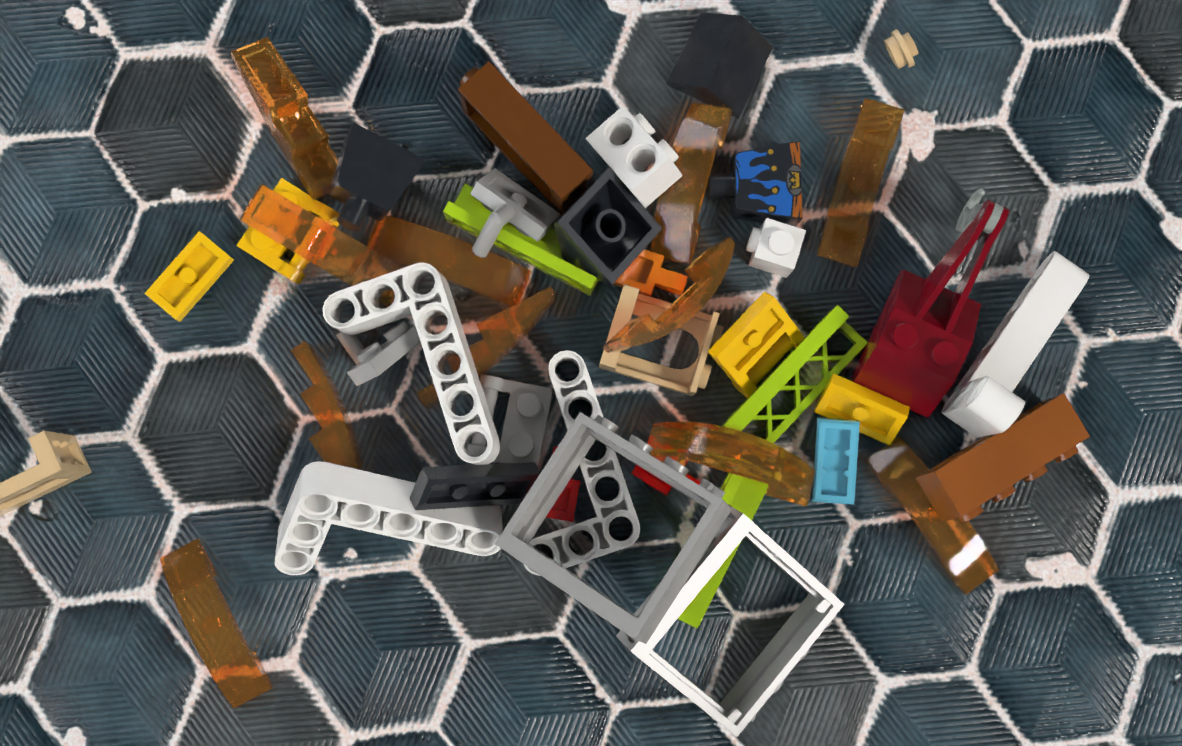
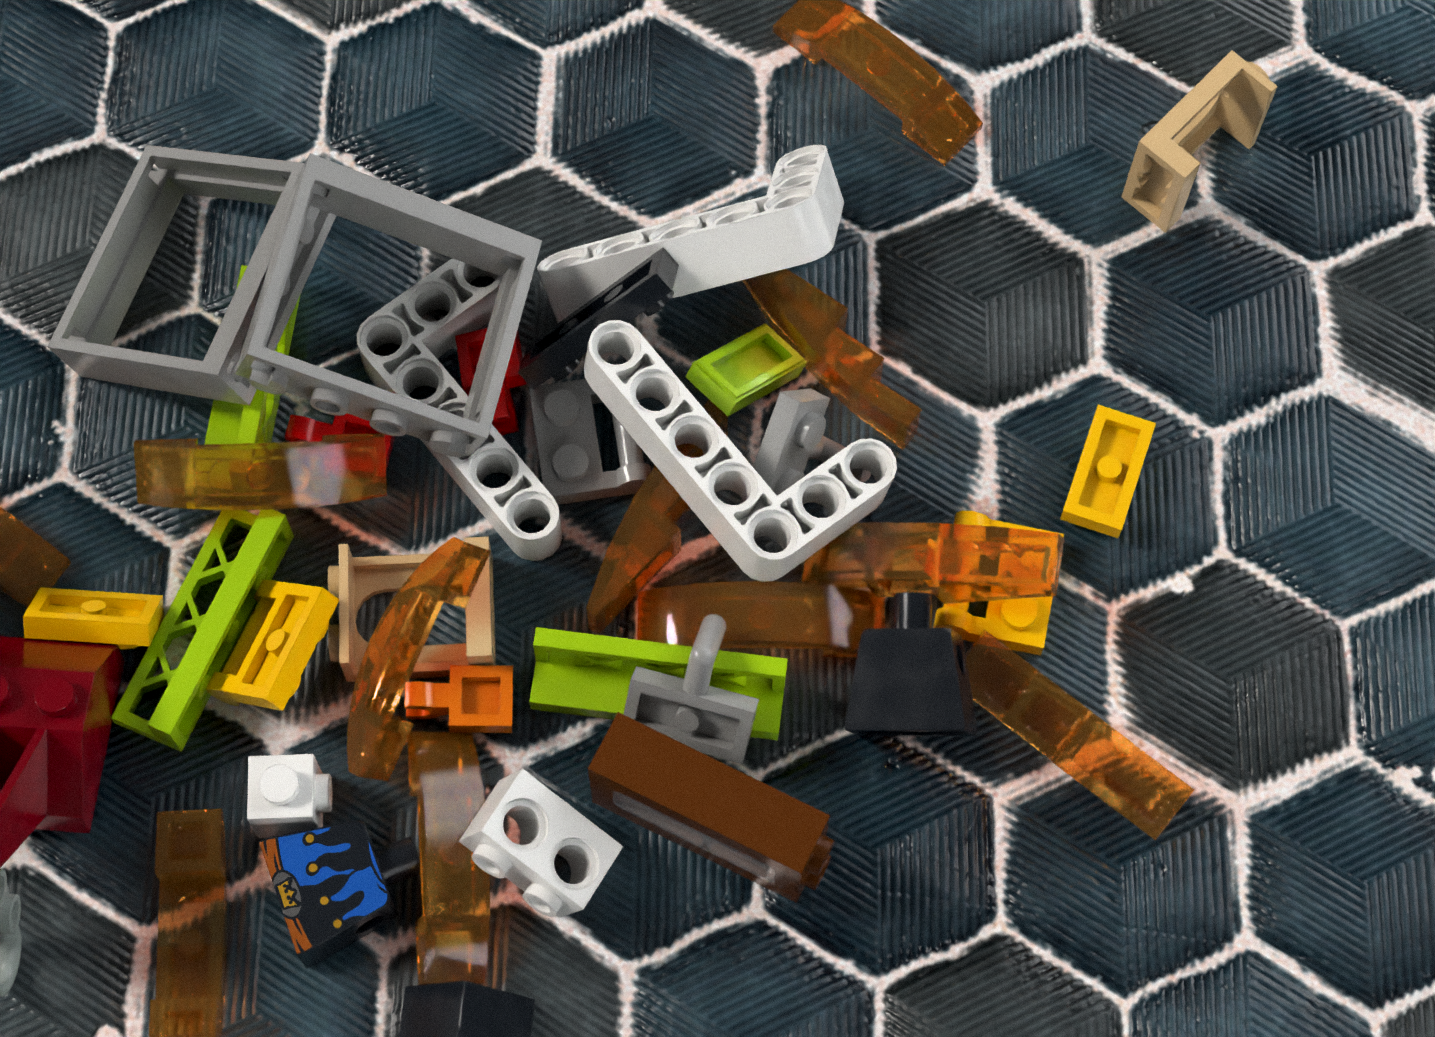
camera: 165 degrees right, 15 degrees down
(392, 424) = (746, 369): none -> lime tile
(605, 229) = (541, 718): black slope -> none
(835, 461) = (112, 537): medium azure plate -> none

